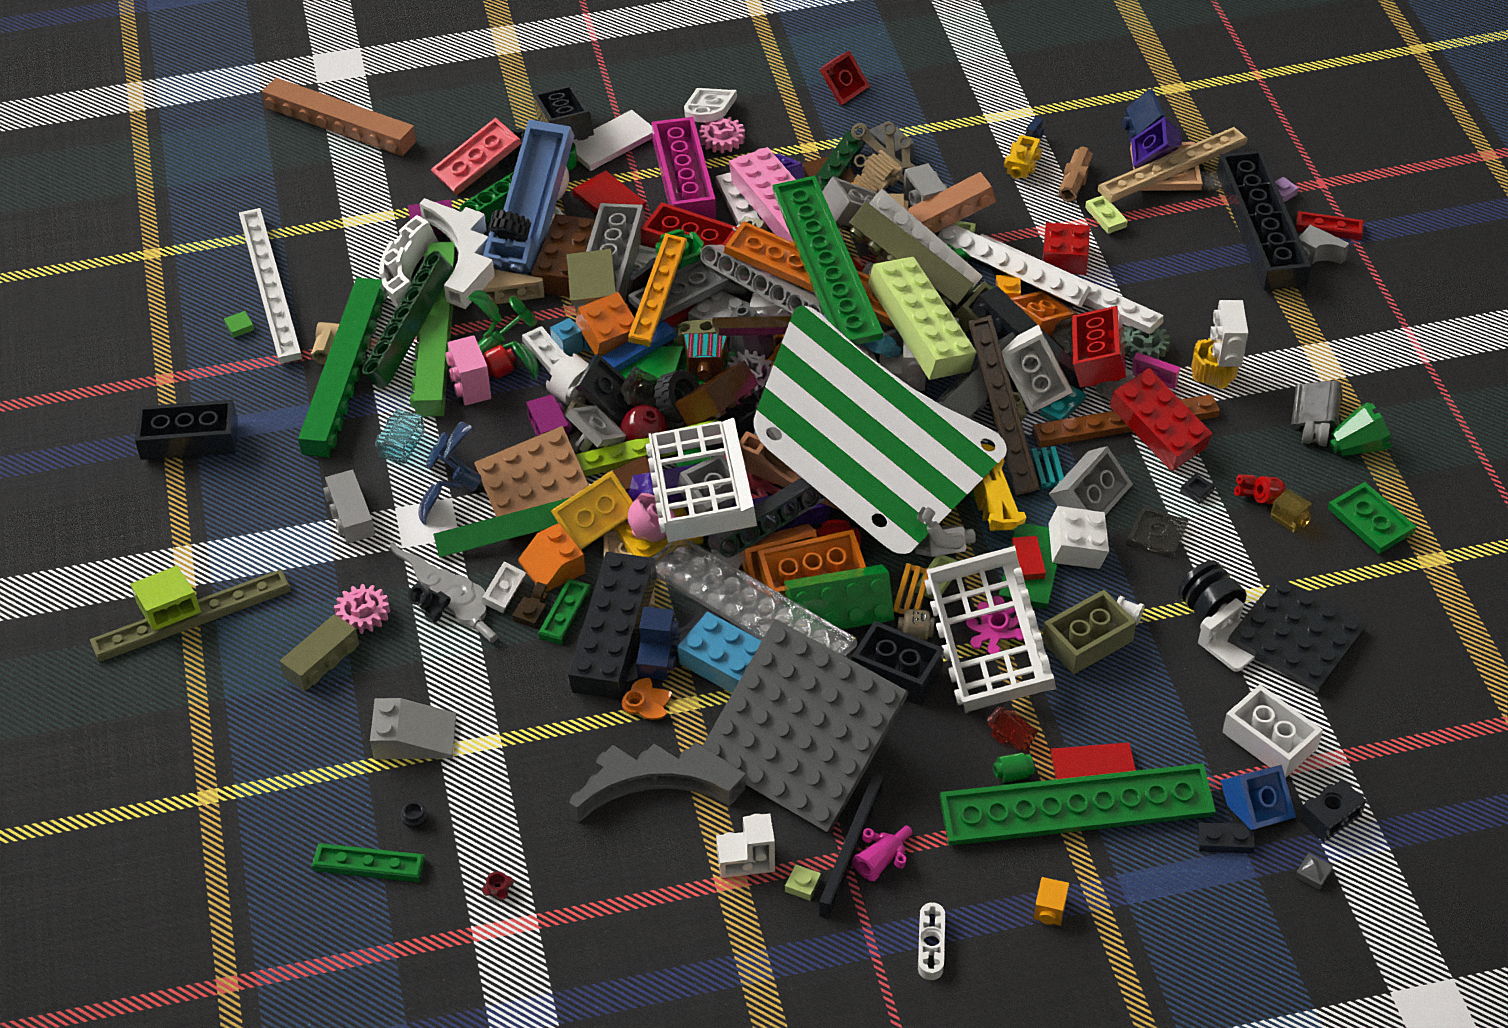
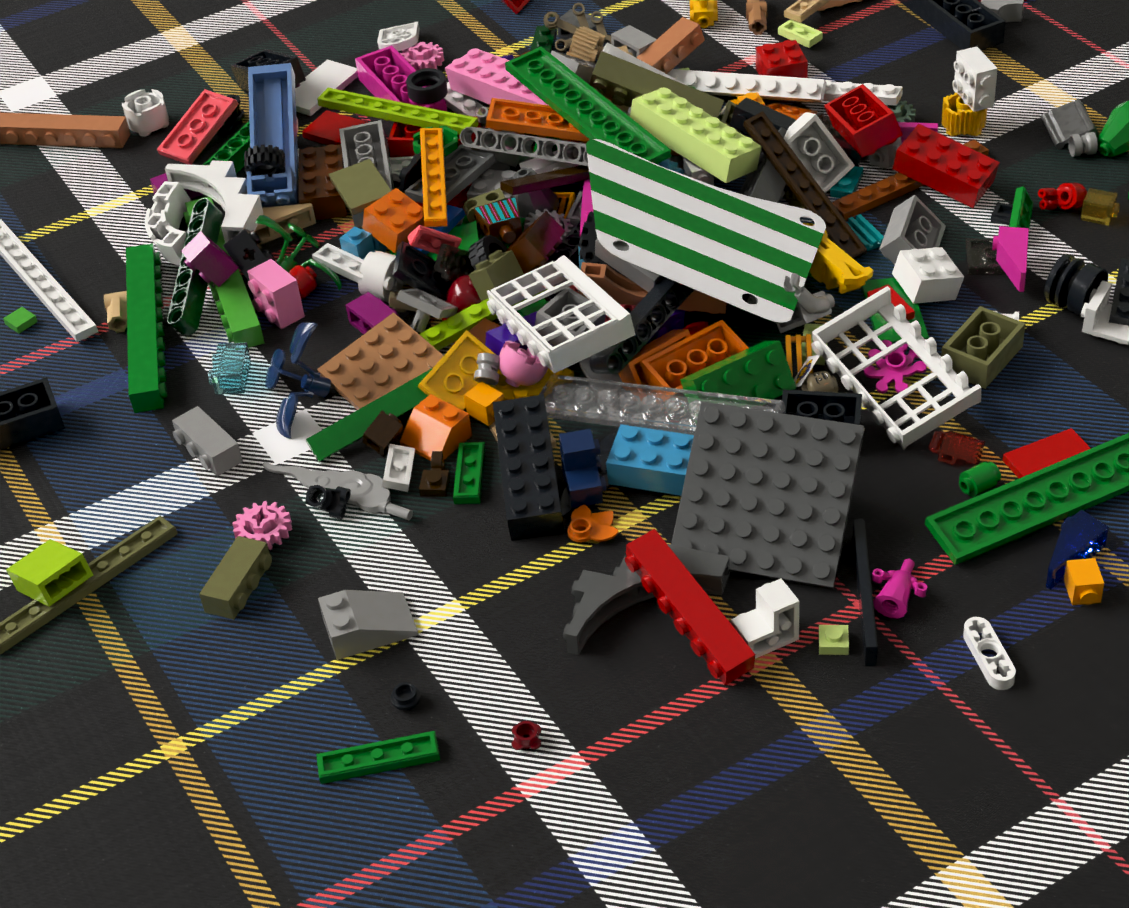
camera: 15 degrees left, 5 degrees down
(417, 320) = (209, 259): none -> magenta brick
(435, 124) = (145, 111): none -> white brick
(452, 315) = (238, 250): none -> black brick
(503, 548) = (382, 432): none -> dark brown brick
(602, 541) = (480, 402): none -> light orange brick
(617, 515) = (487, 368): none -> light grey wheel
(627, 360) = (431, 239): none -> coral slope
(661, 200) = (394, 110): none -> lime plate
(668, 415) = (495, 272): none -> olive brick
(685, 812) = (689, 607): none -> red brick
(701, 189) = (426, 77): none -> black tyre
(908, 605) = (804, 371): none -> sticker
(1065, 861) = (1079, 539): none -> clear blue slope
(1174, 536) = (1012, 253): none -> dark pink slope
(1207, 498) = (1021, 209): none -> green tile

